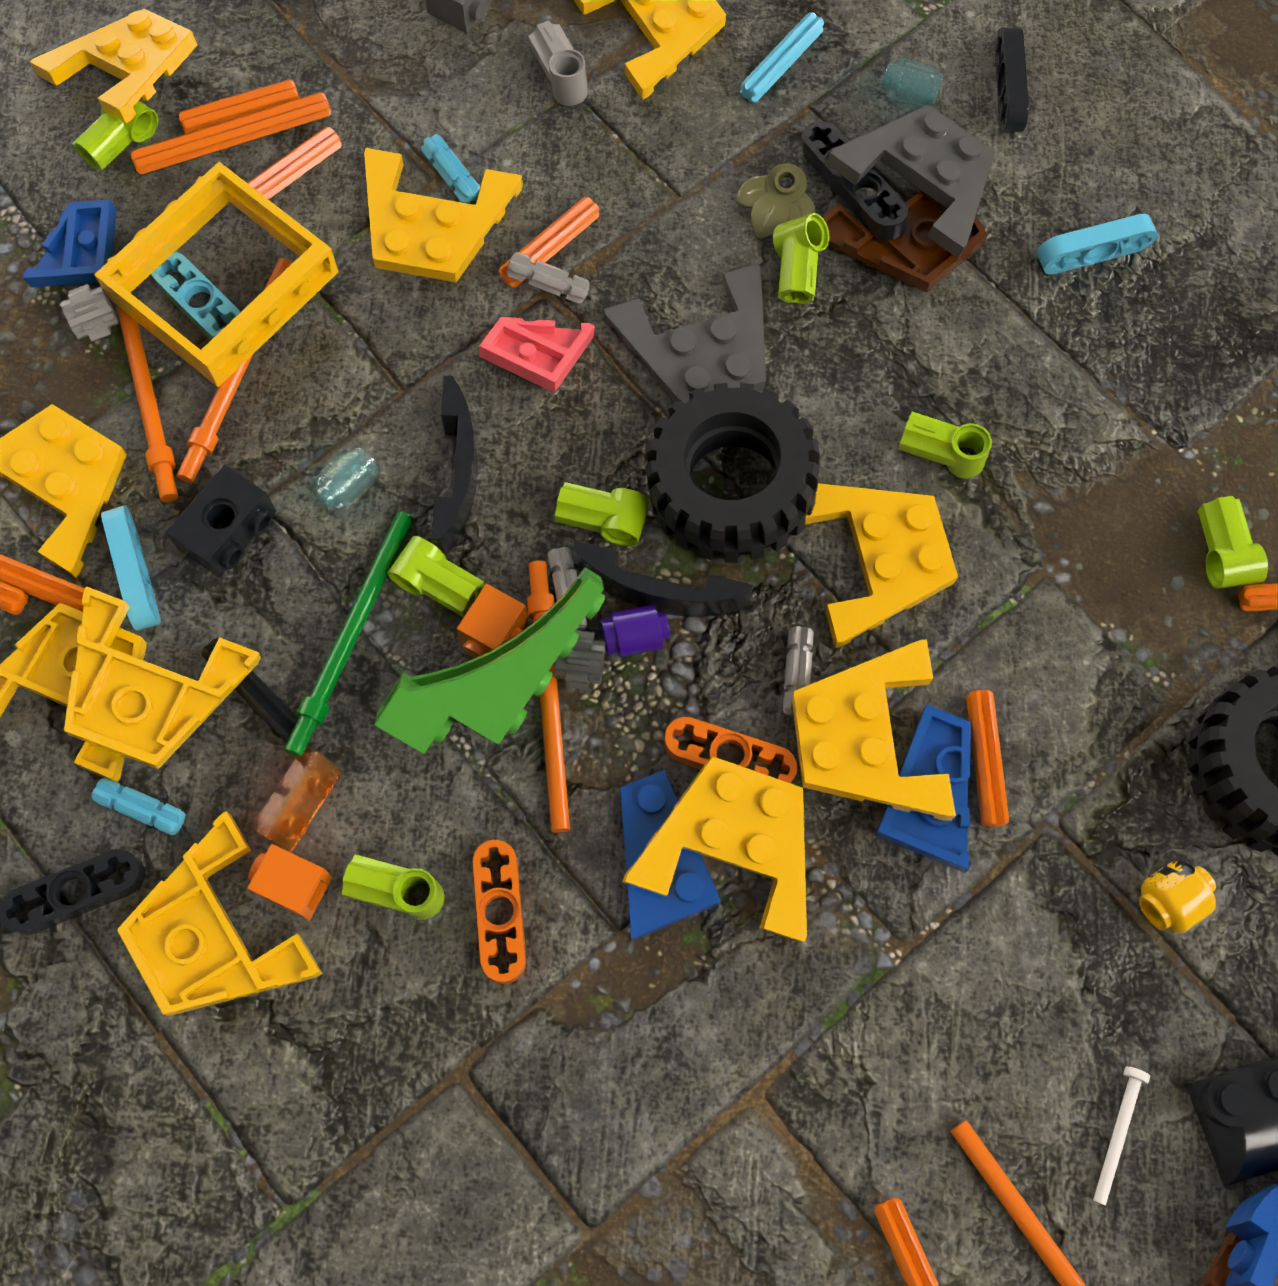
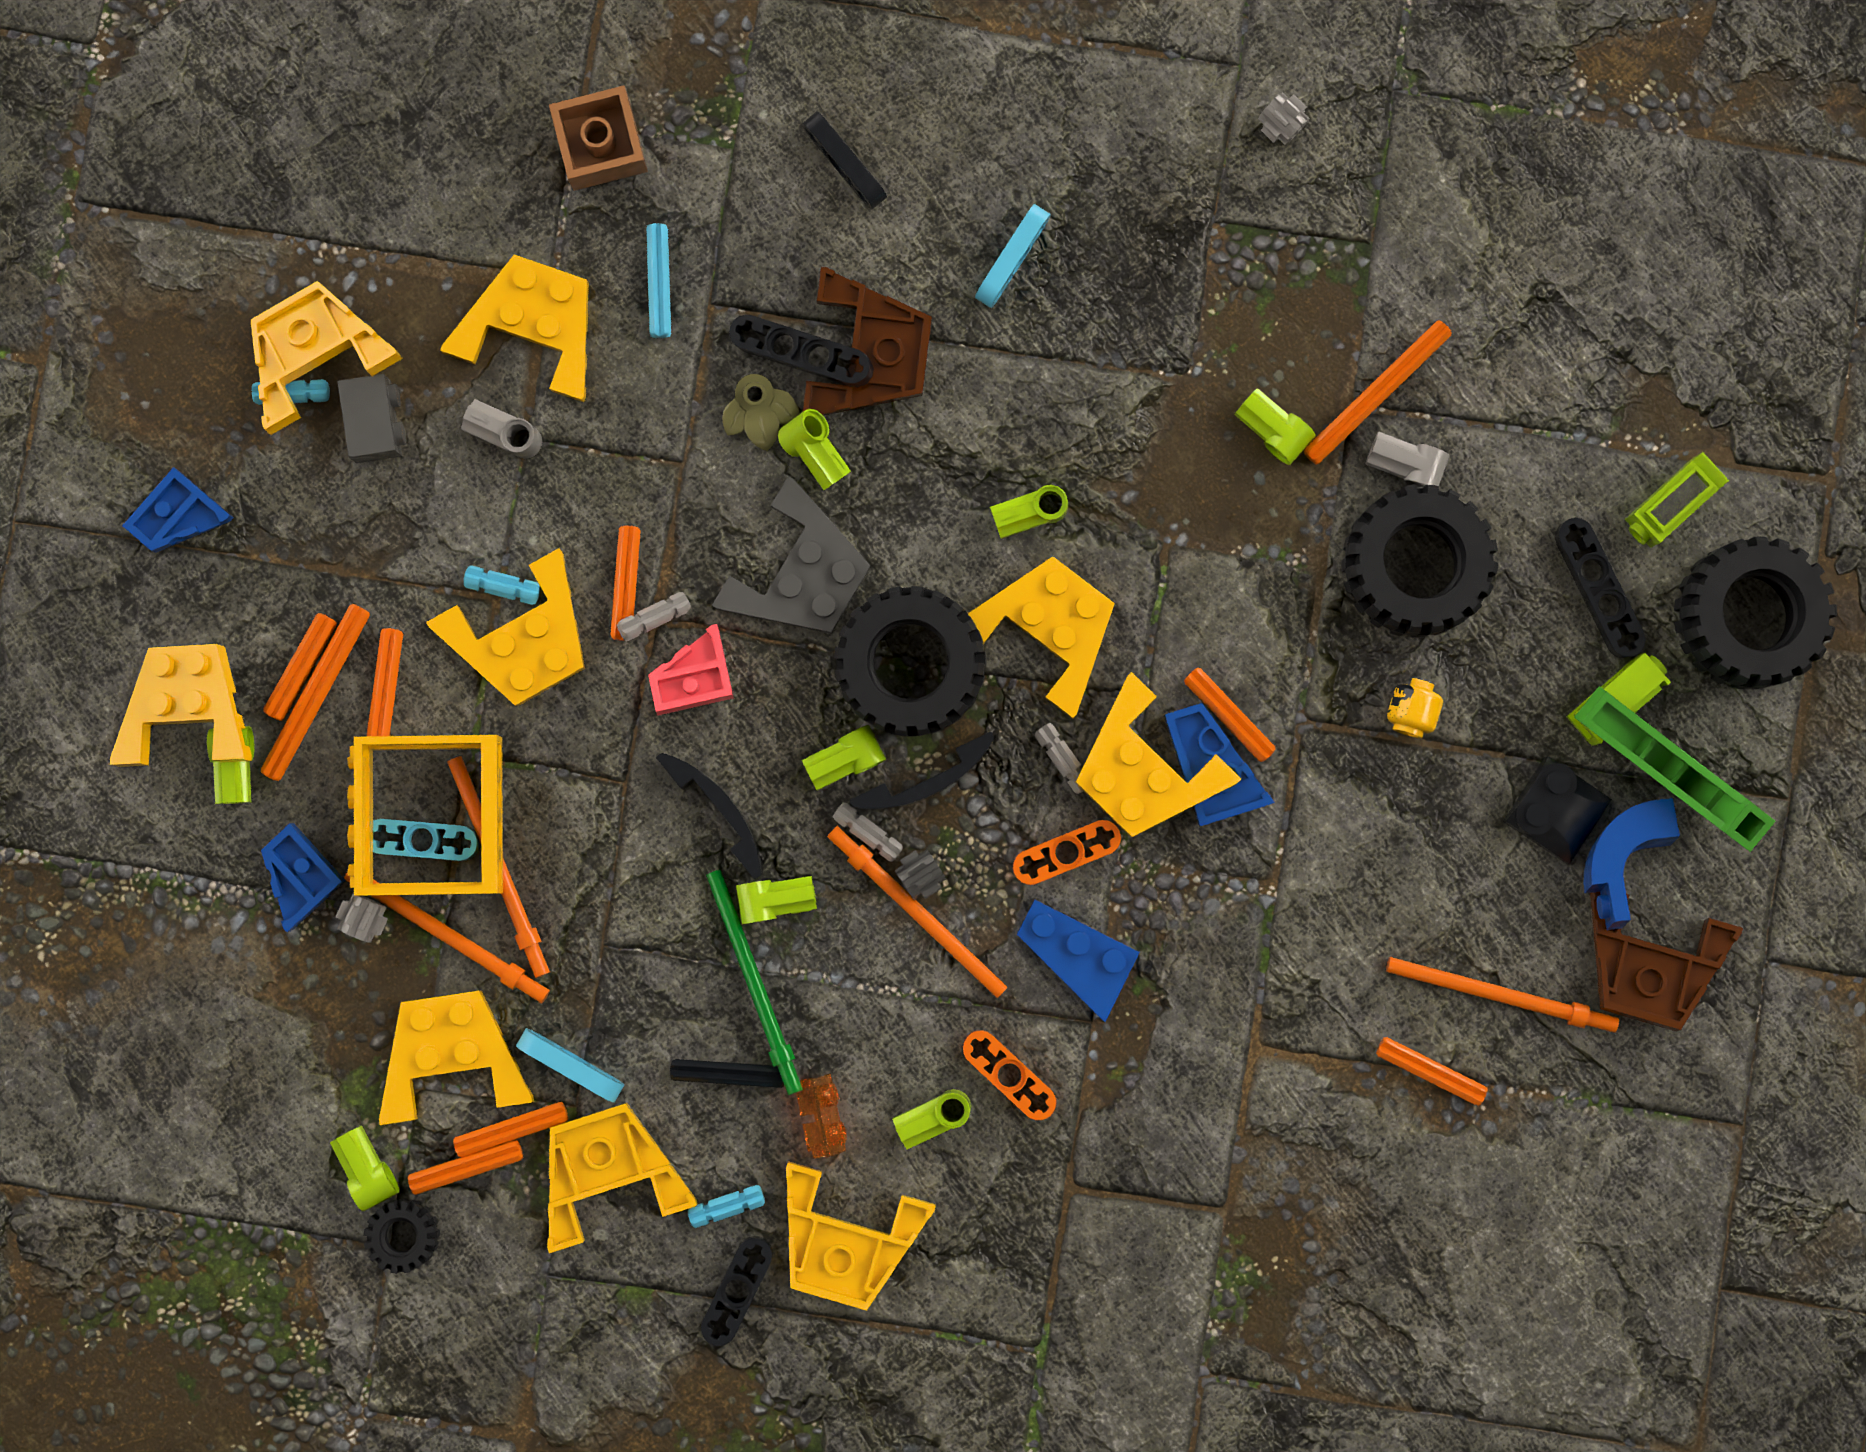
camera: 40 degrees left, 15 degrees up
(135, 704) = (669, 1150): yellow wing -> none
(223, 498) = (589, 1004): black brick -> none
(288, 881) = (867, 1171): orange brick -> none
(346, 478) = (653, 883): clear light blue brick -> none
(491, 622) = (844, 900): orange brick -> none
(494, 687) = (886, 942): bright green arch -> none
(635, 631) = (937, 824): dark purple brick -> none
(742, 822) = (1113, 894): yellow wing -> none
(912, 82) = (774, 226): clear light blue brick -> none
(931, 156) = (849, 286): dark grey wing -> none
(1121, 1127) = (1470, 845): white piece -> none

